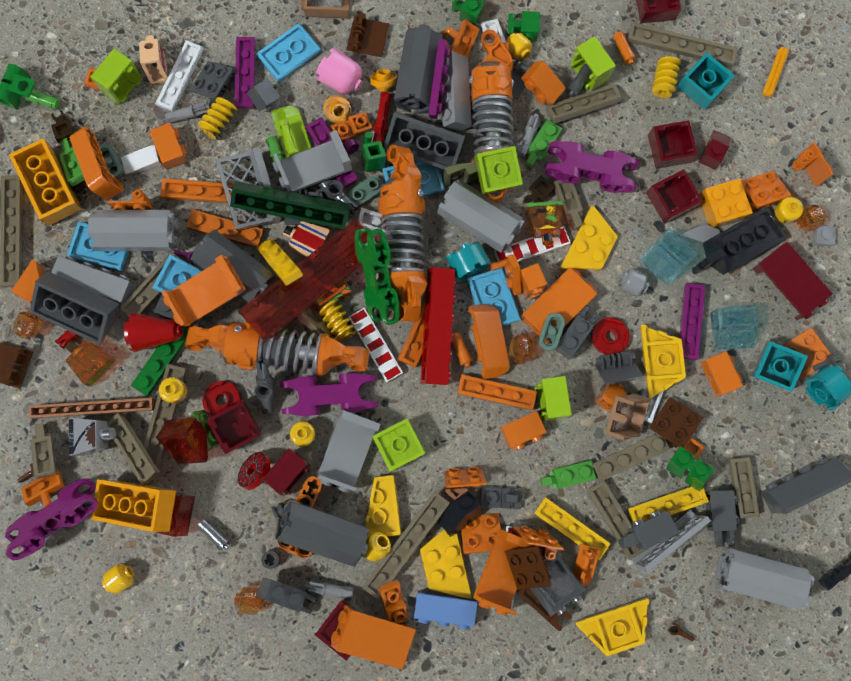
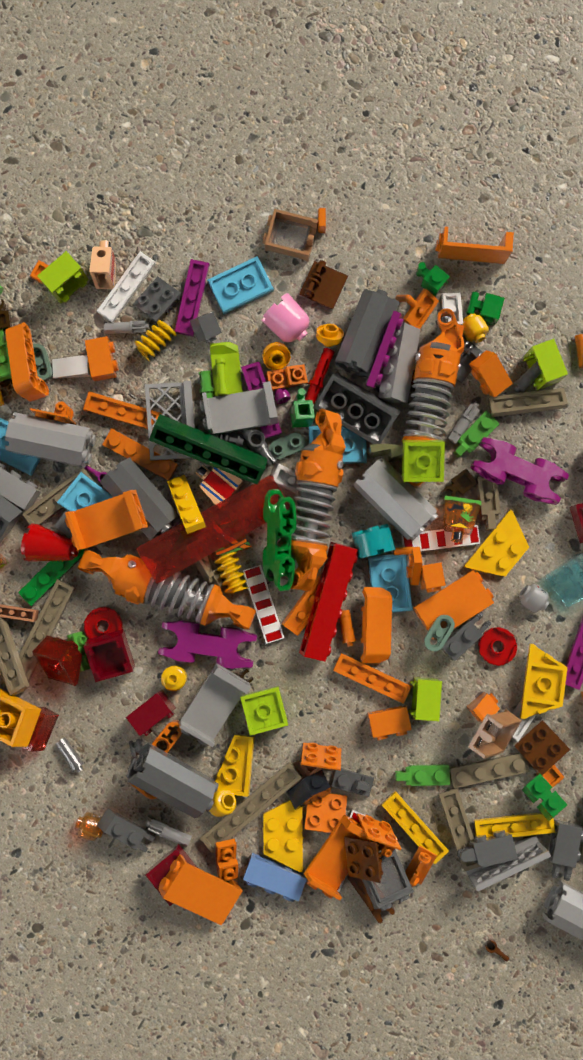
camera: 20 degrees right, 5 degrees up
(172, 390) = (57, 609): yellow head -> none
(253, 470) = (124, 695): tile -> none
(265, 556) = (122, 785): dark grey bush -> none
(266, 393) = (146, 624): dark grey pin -> none
(521, 348) = (406, 640): clear orange head -> none
(617, 628) = (436, 932): yellow wing -> none
(619, 370) = (497, 683): dark grey hinge -> none

